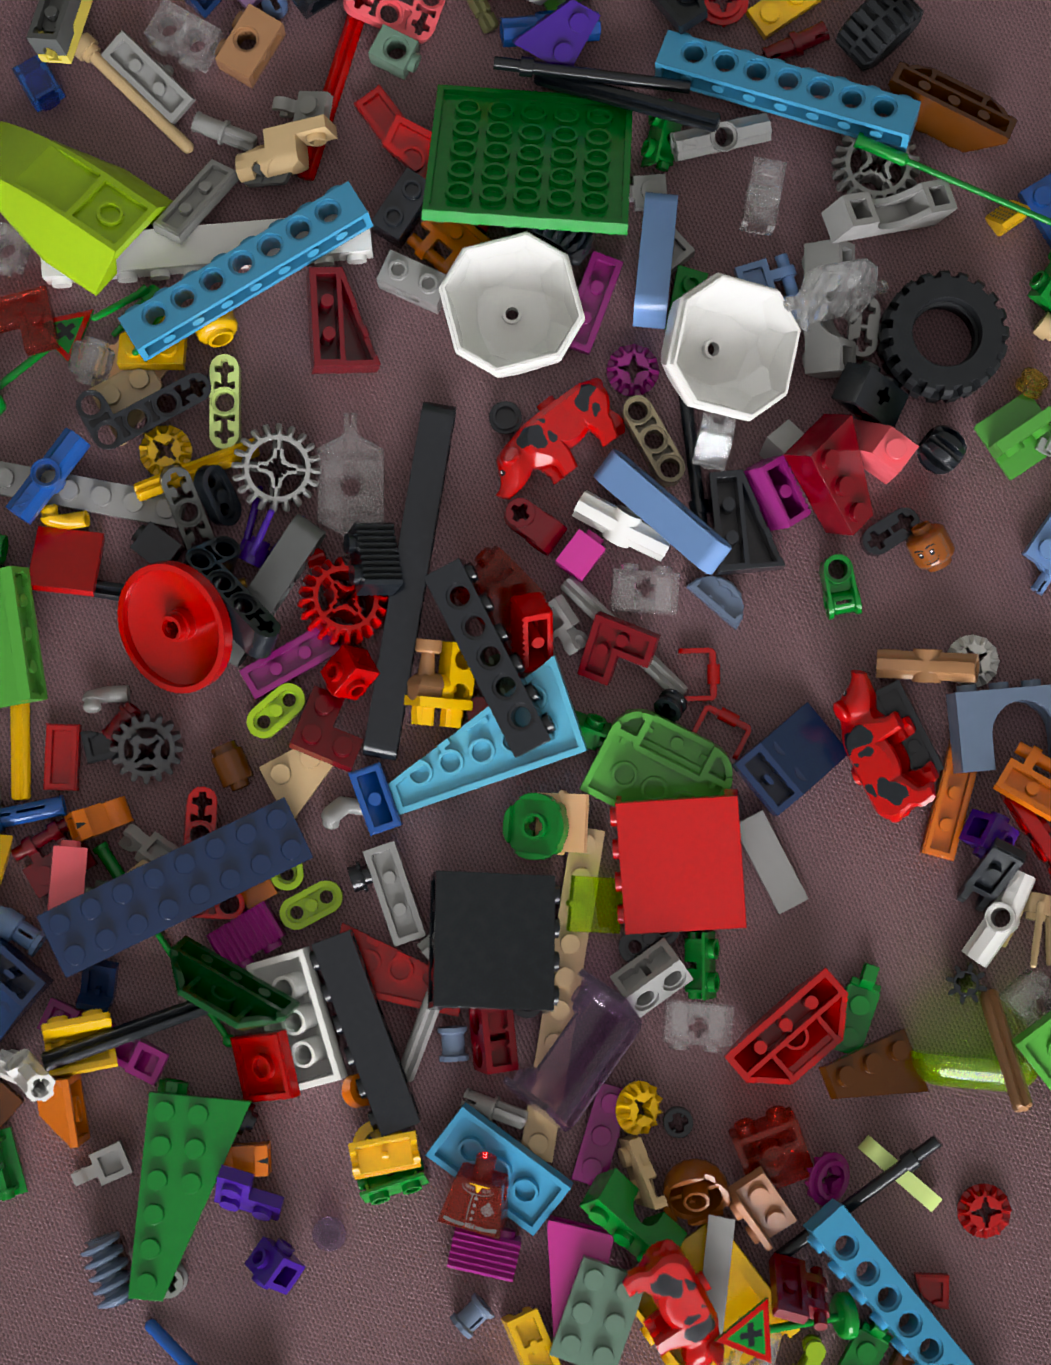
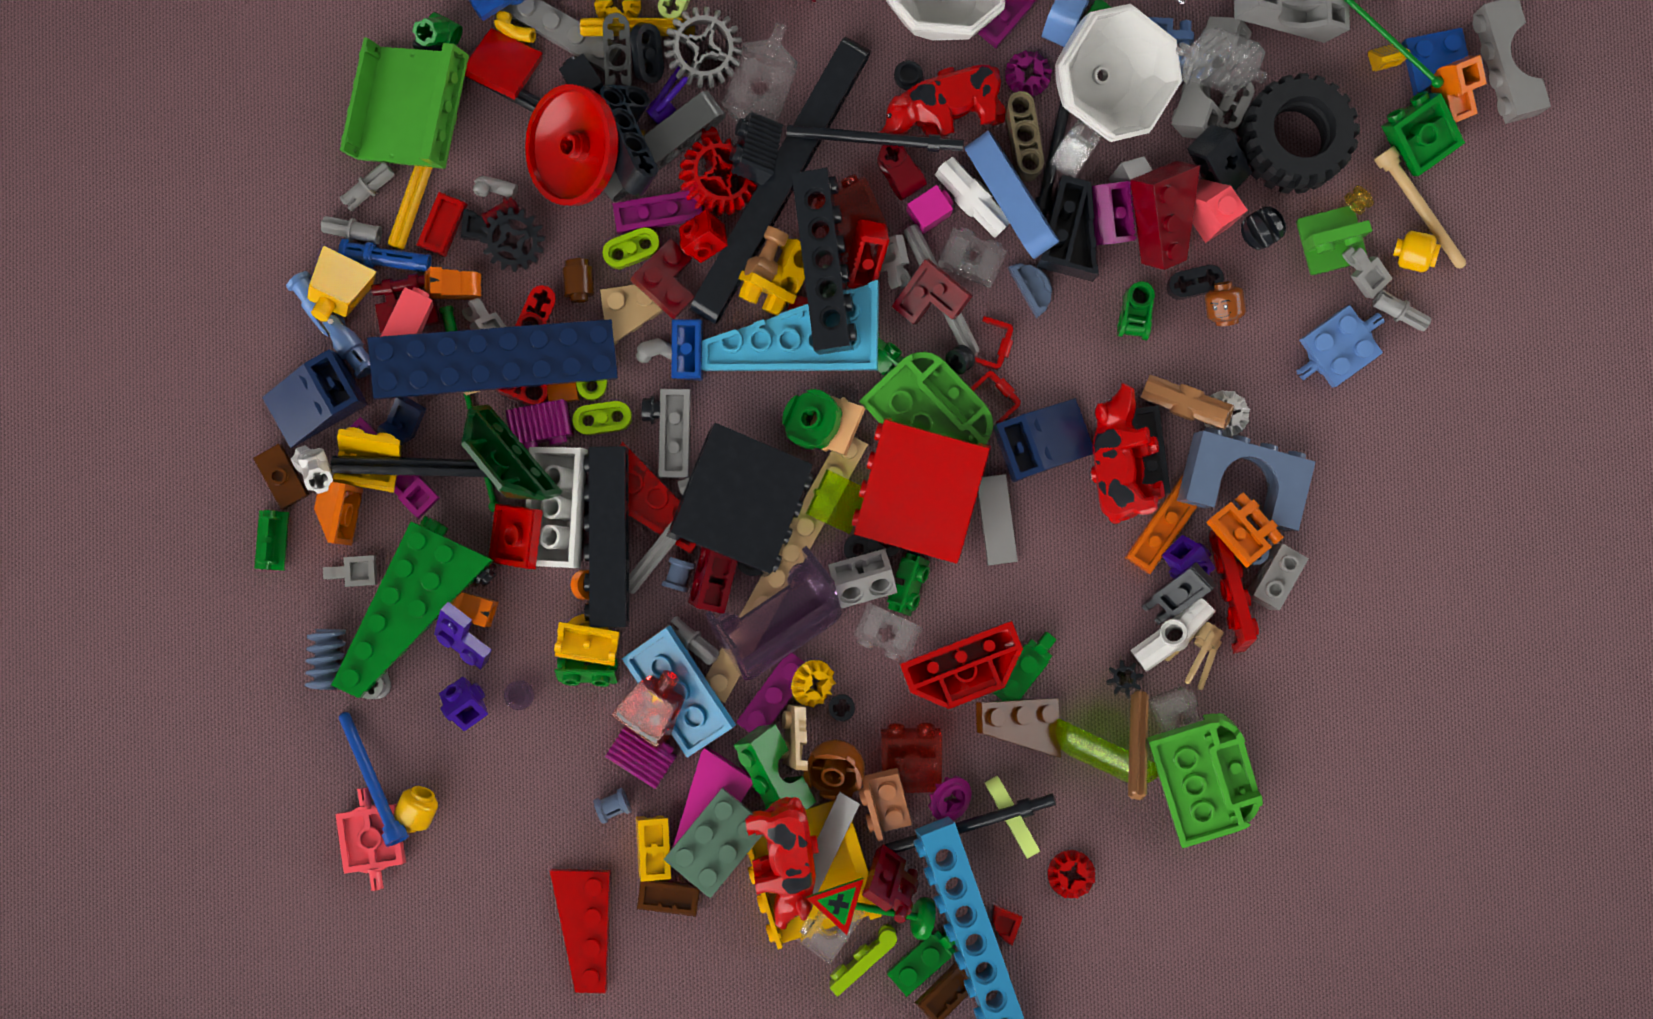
camera: 25 degrees right, 0 degrees up
(559, 487) = (932, 142): none -> black bar

